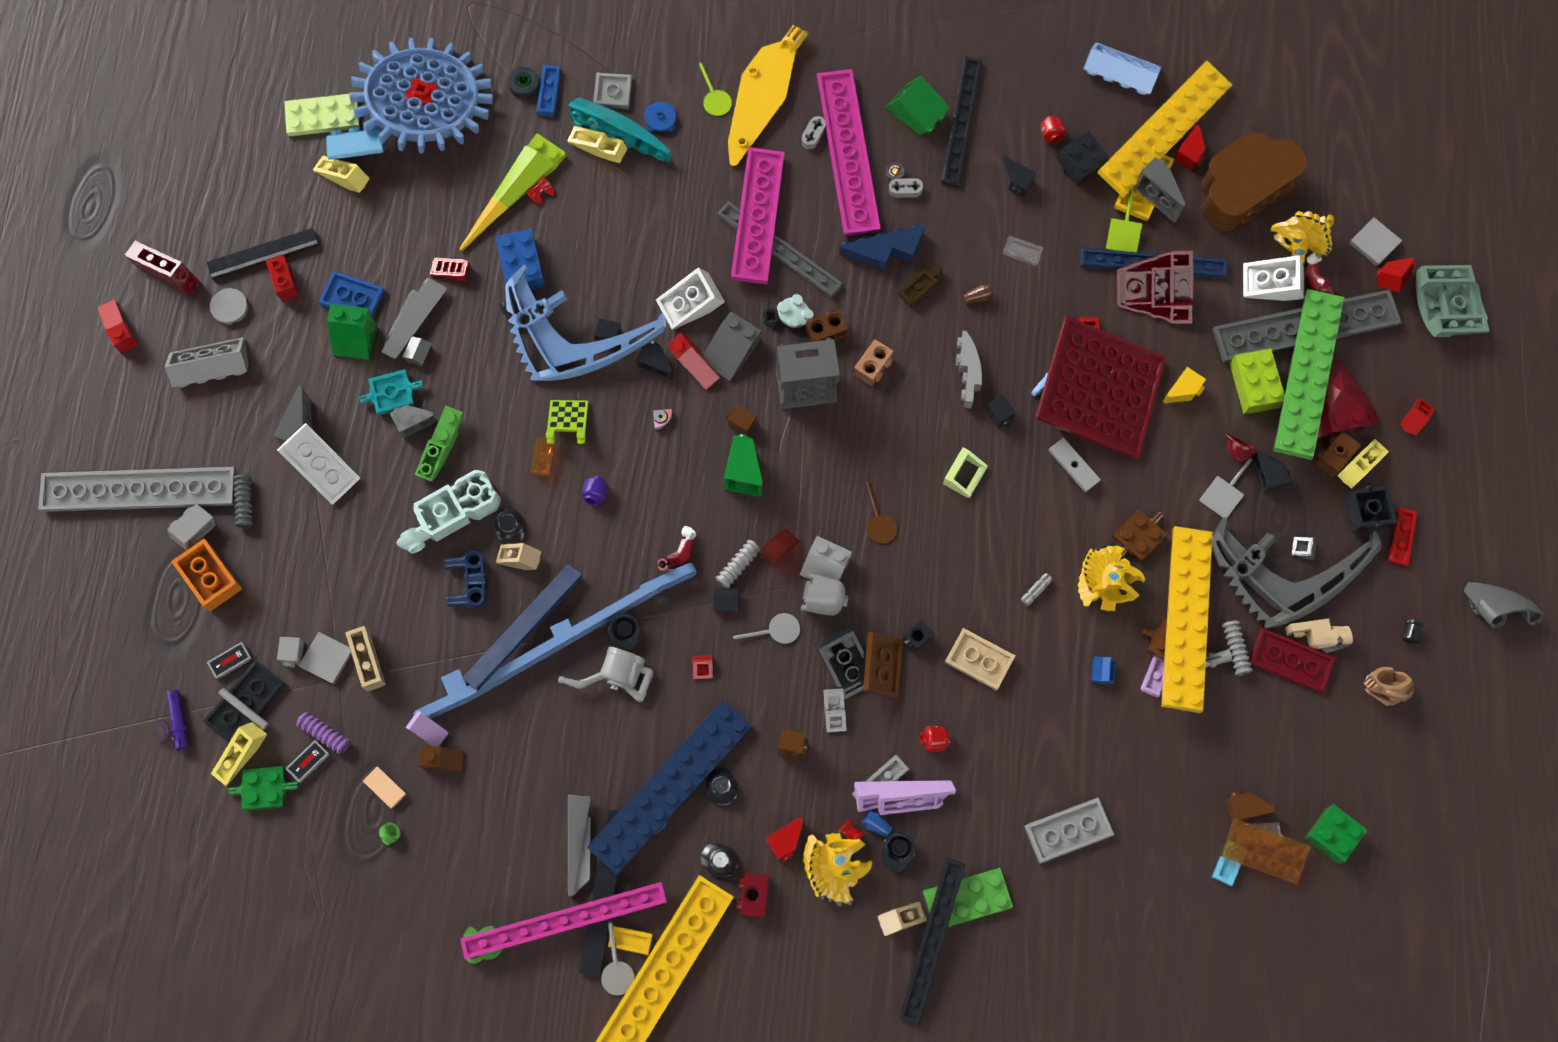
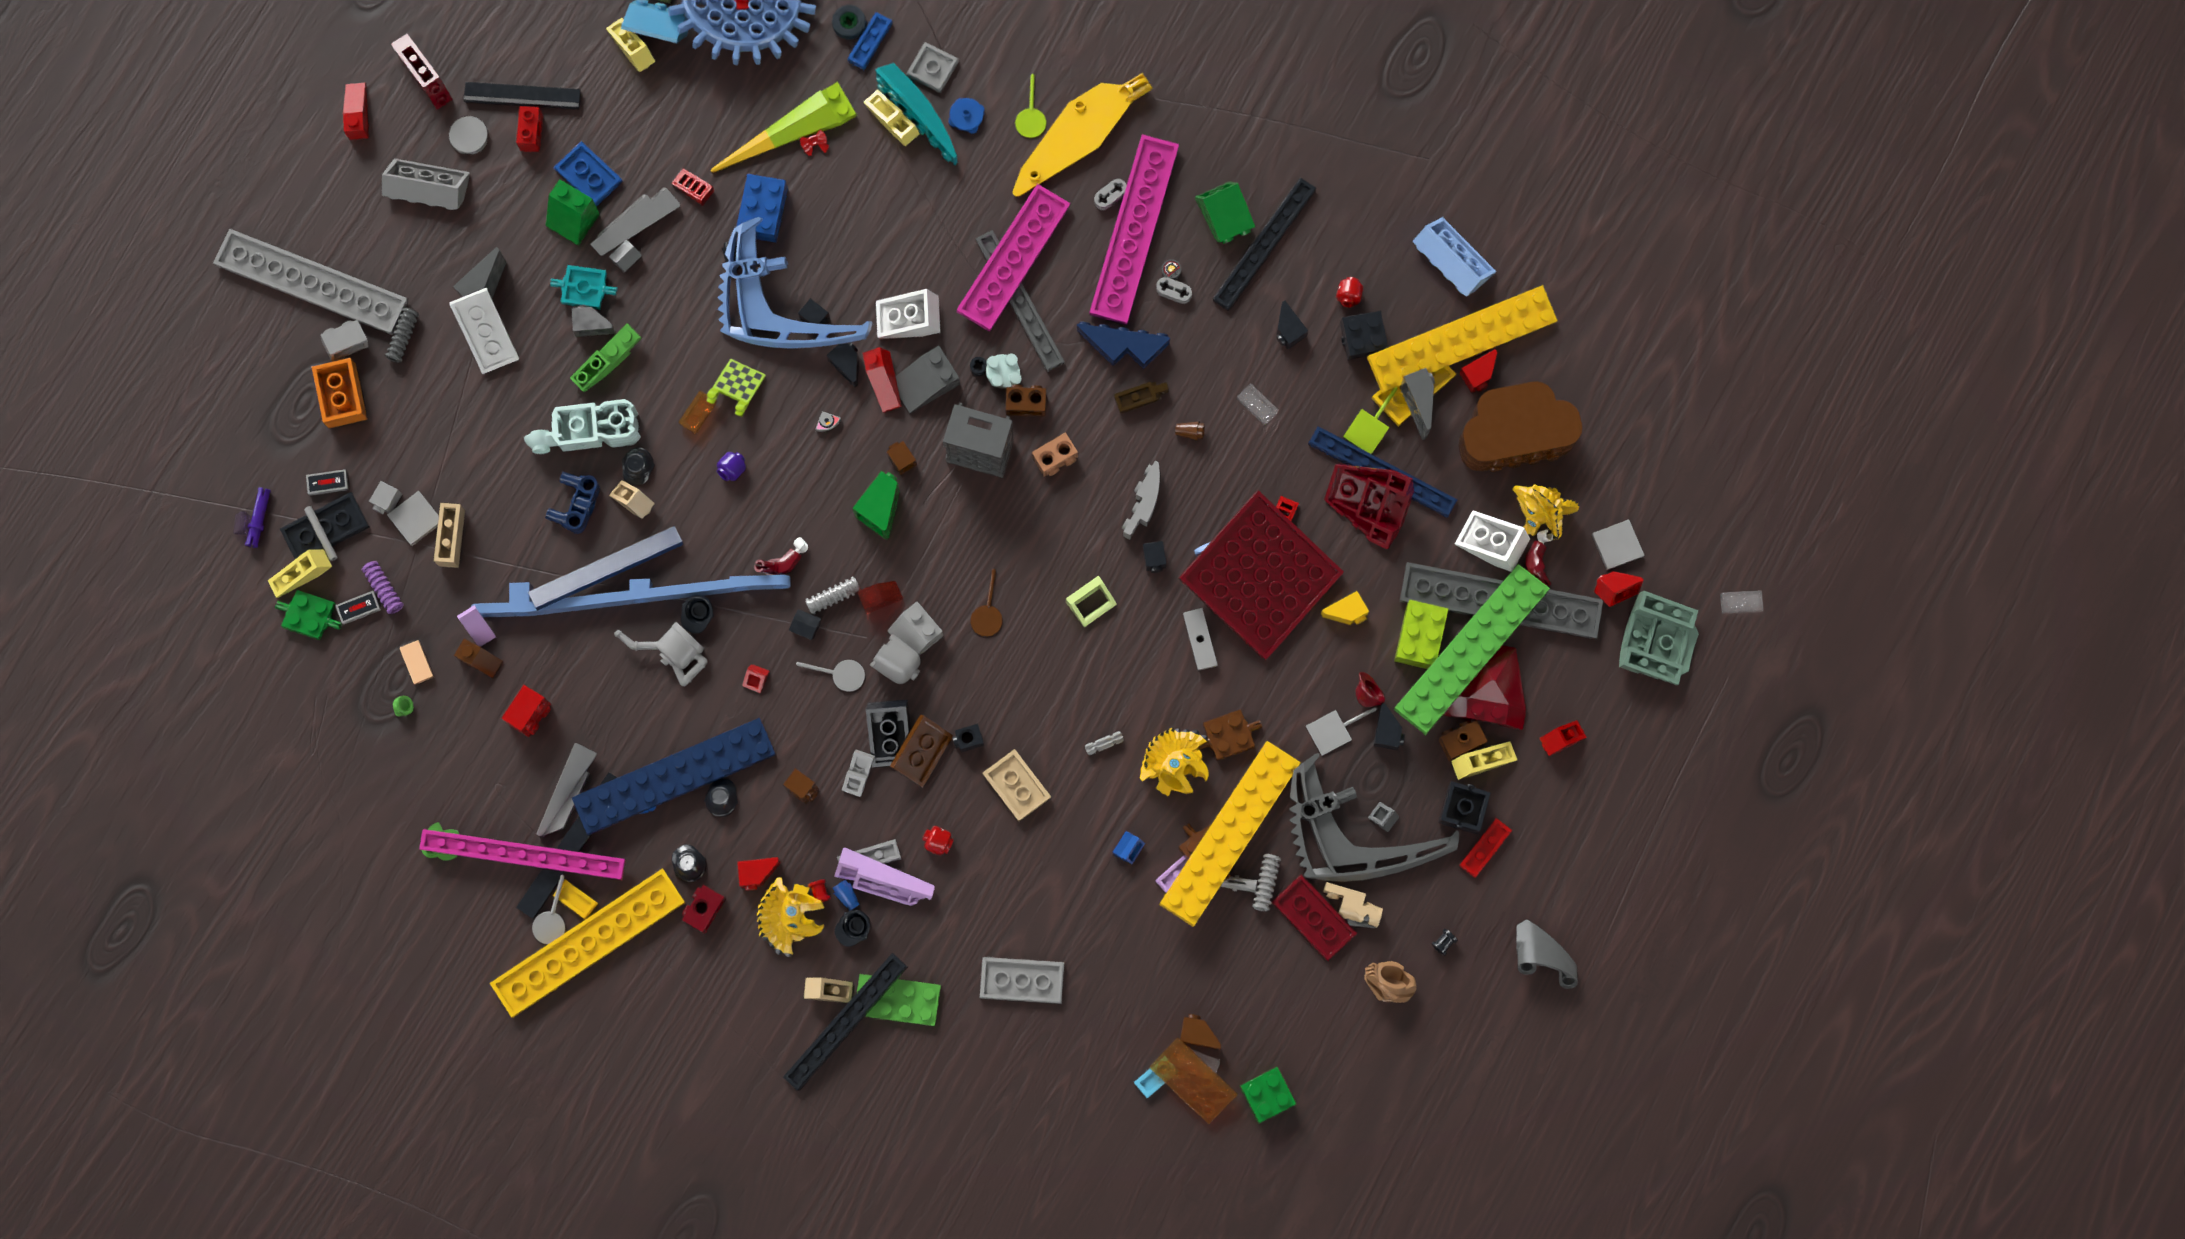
camera: 25 degrees right, 5 degrees up
(509, 786) = (526, 711): none -> red brick
(1498, 245) = (1741, 602): none -> clear plate

